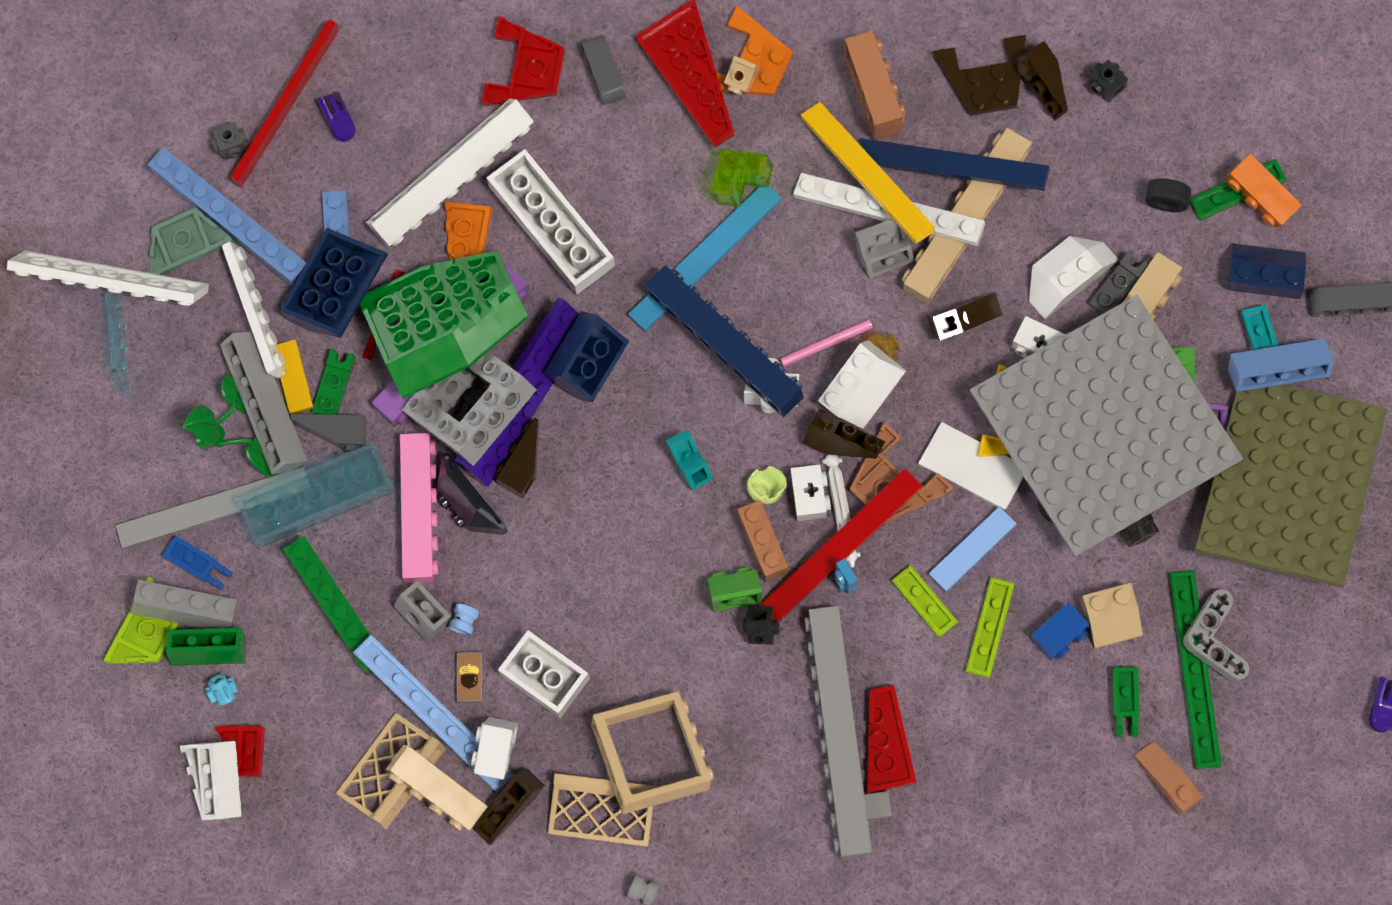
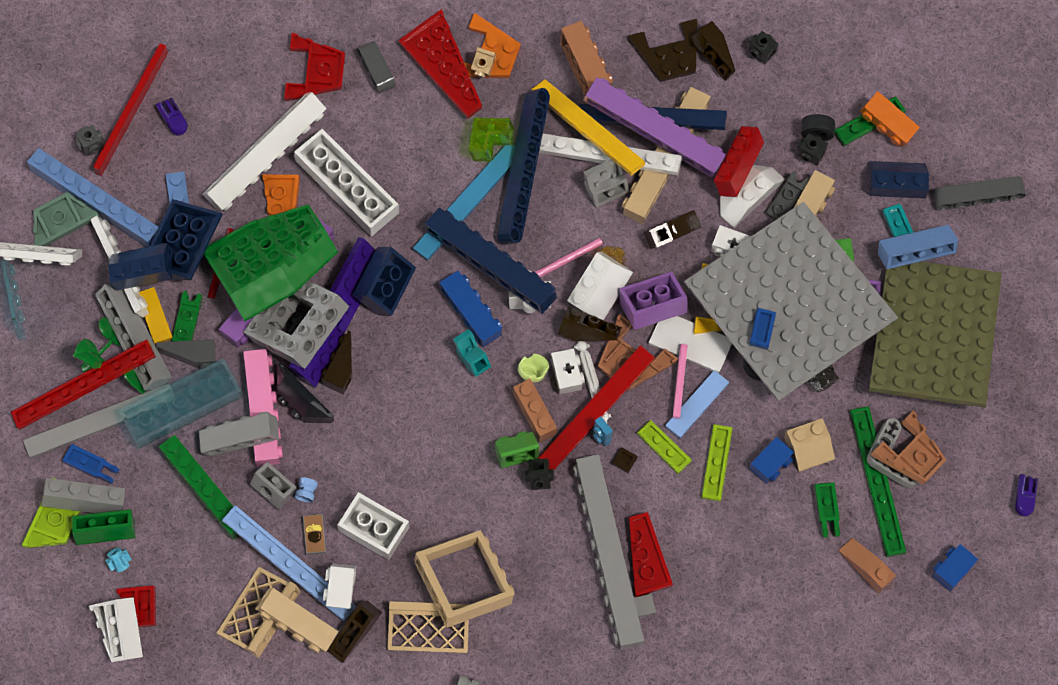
camera: 15 degrees left, 5 degrees down
(195, 461) = (83, 384): none -> red tile
(278, 314) = (140, 267): none -> dark blue slope
(384, 542) = (238, 434): none -> light grey brick
(694, 401) = (470, 308): none -> blue brick
(779, 218) = (523, 166): none -> dark blue beam
(872, 614) = (624, 460): none -> dark brown tile
(928, 409) = (653, 300): none -> medium lavender brick
(952, 180) = (654, 126): none -> medium lavender brick
(953, 517) = (680, 381): none -> bright pink bar
(1059, 233) = (738, 161): none -> red brick
(1064, 460) = (762, 328): none -> blue tile
(1157, 222) = (812, 149): none -> pearl dark grey brick
(1251, 645) = (918, 459): none -> nougat wing
(1280, 791) = (954, 567): none -> blue brick

